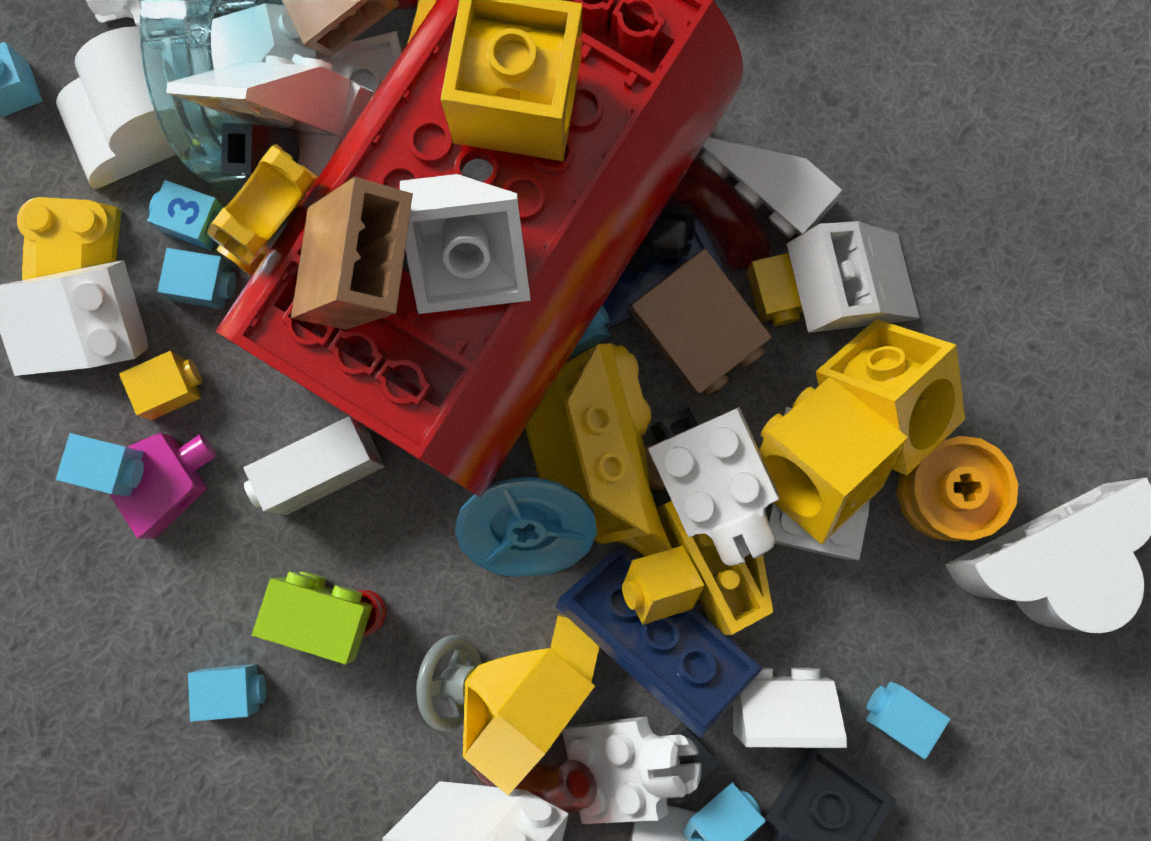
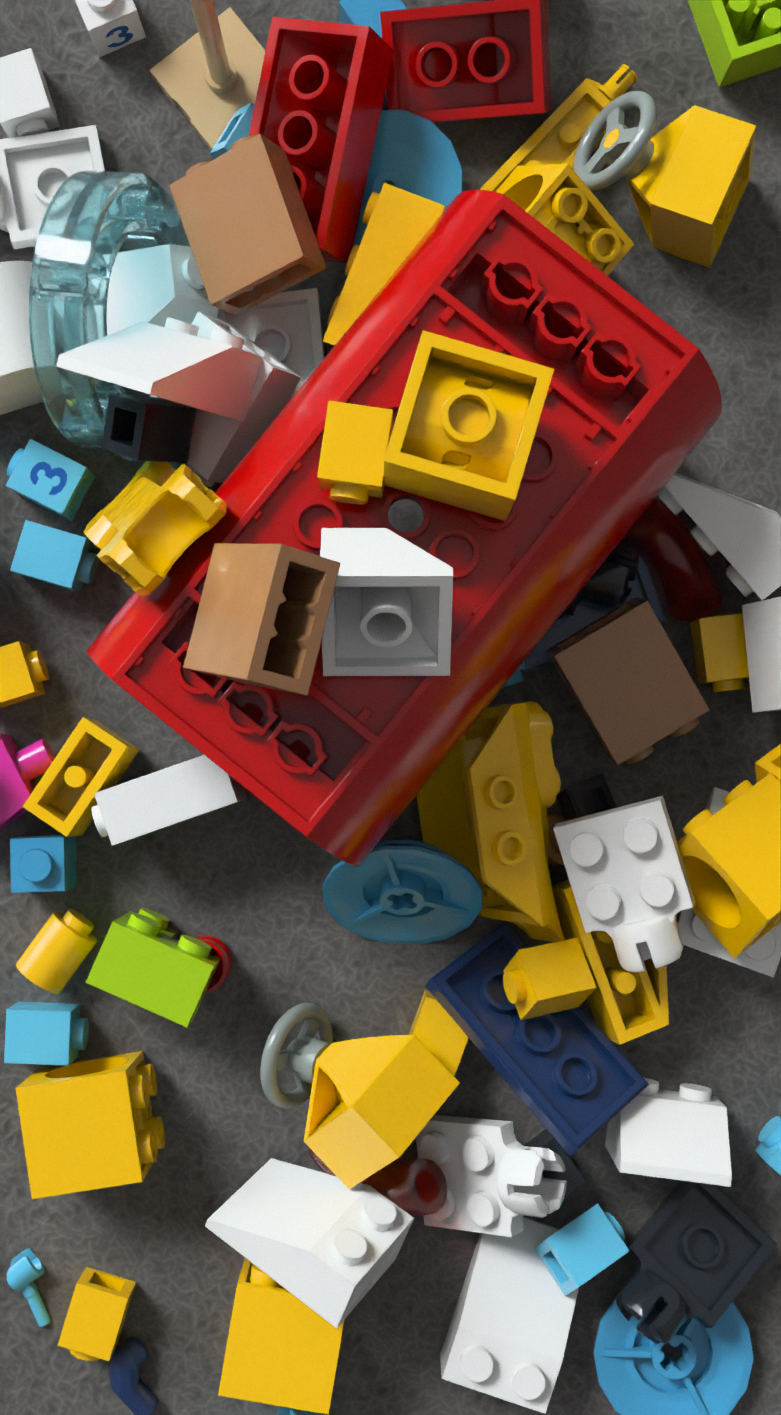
camera: 10 degrees right, 5 degrees up
(210, 541) = (43, 863): none -> dark azure brick
(221, 473) = (86, 764): none -> yellow brick
(230, 617) = (57, 950): none -> yellow brick
(270, 767) = (89, 1124): none -> yellow brick
(418, 116) = (354, 451): none -> yellow brick

